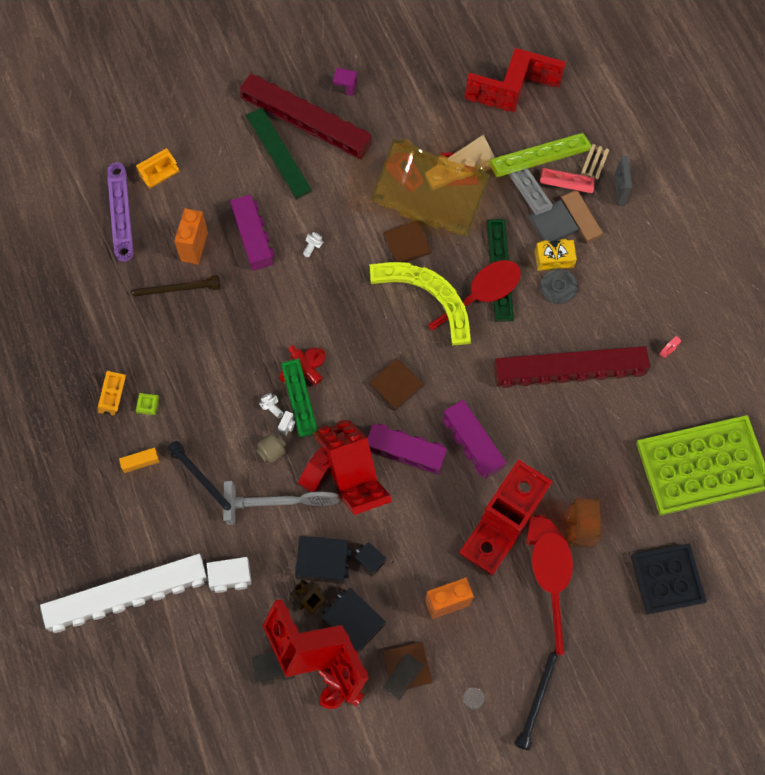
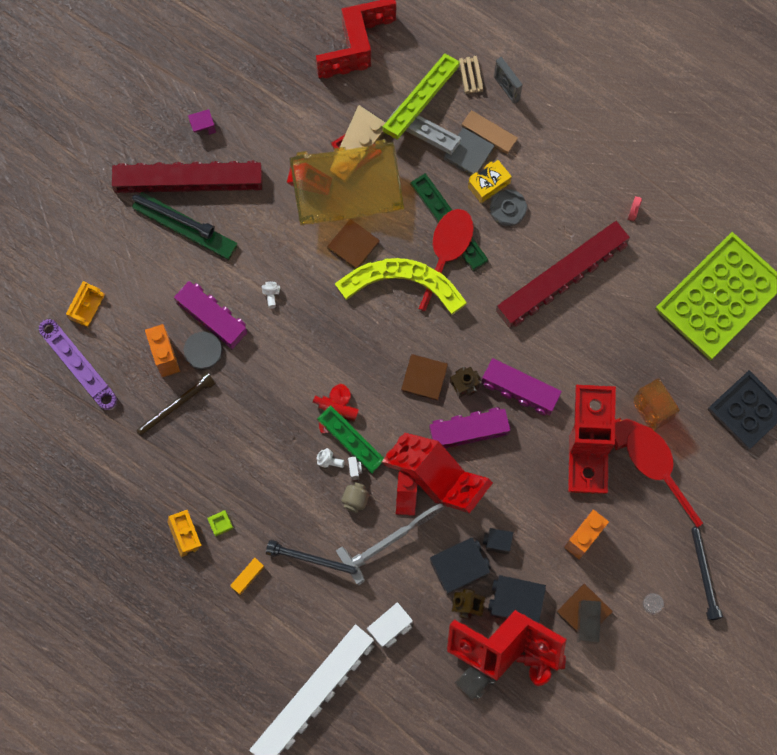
camera: 30 degrees left, 5 degrees up
(227, 257) = (202, 350): none -> dark grey tile
(291, 163) = (206, 230): none -> black piece
(428, 406) = (459, 382): none -> dark brown brick
(567, 180) = (457, 106): coral tile -> none

